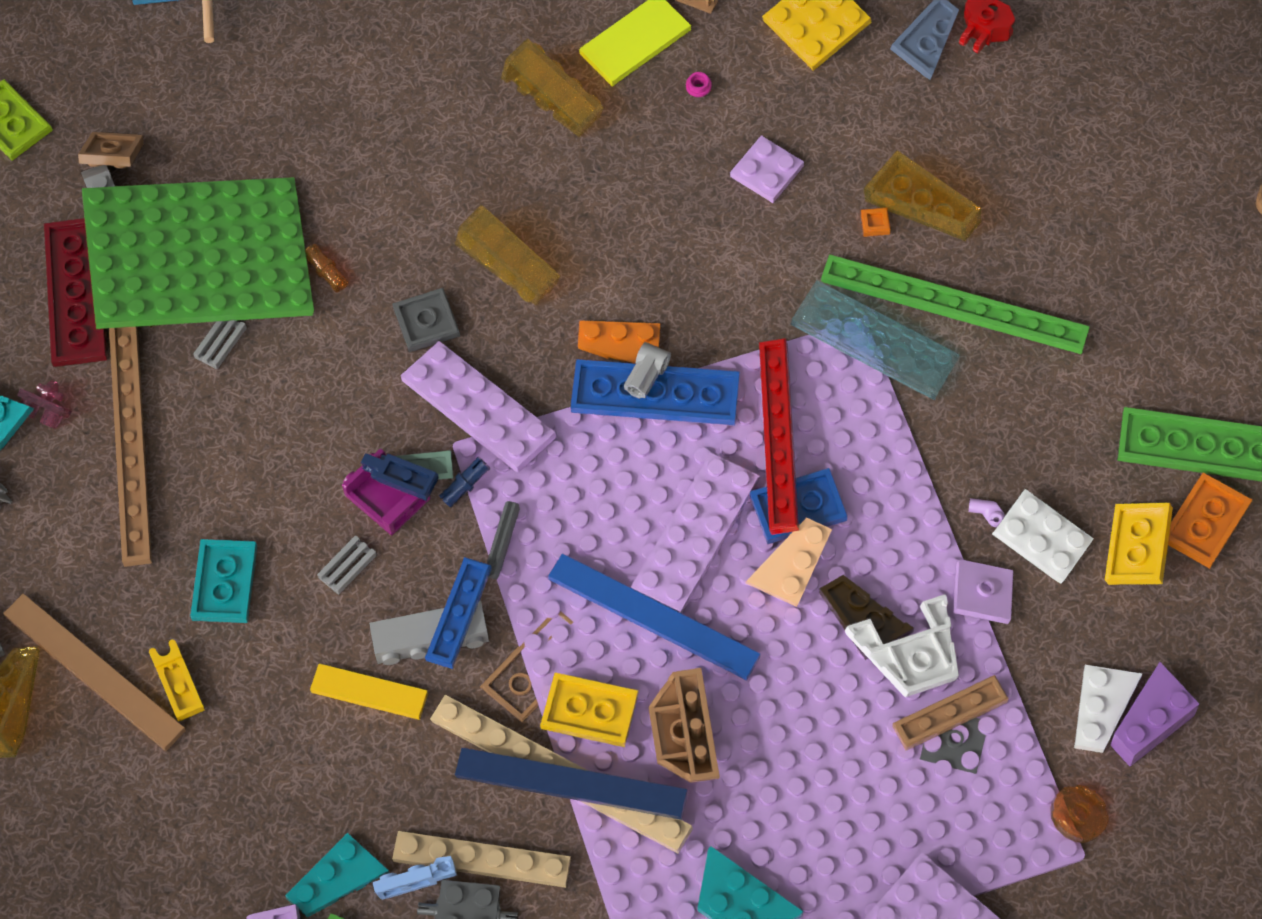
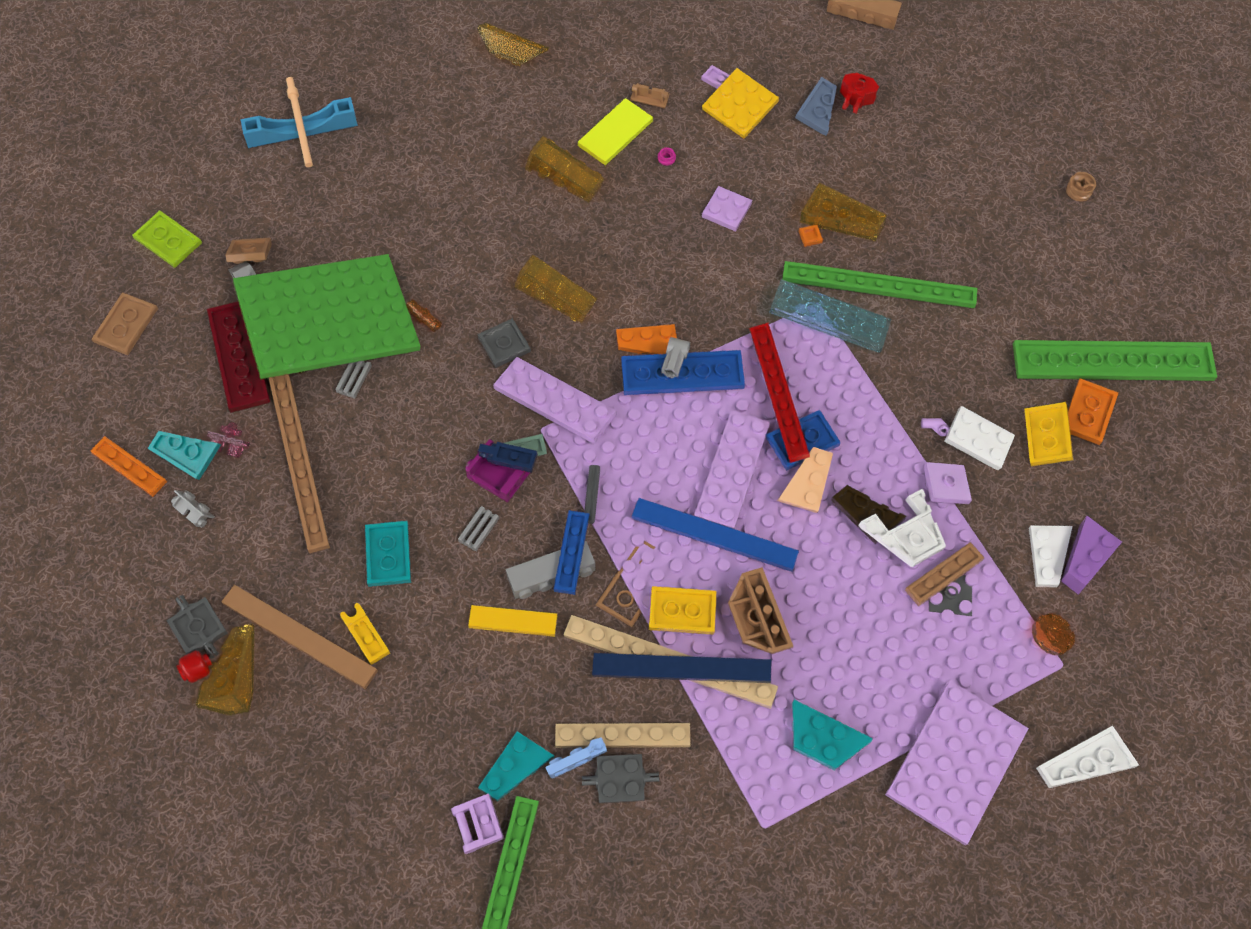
camera: 15 degrees left, 0 degrees up
(464, 482) = (555, 455): dark blue pin -> none

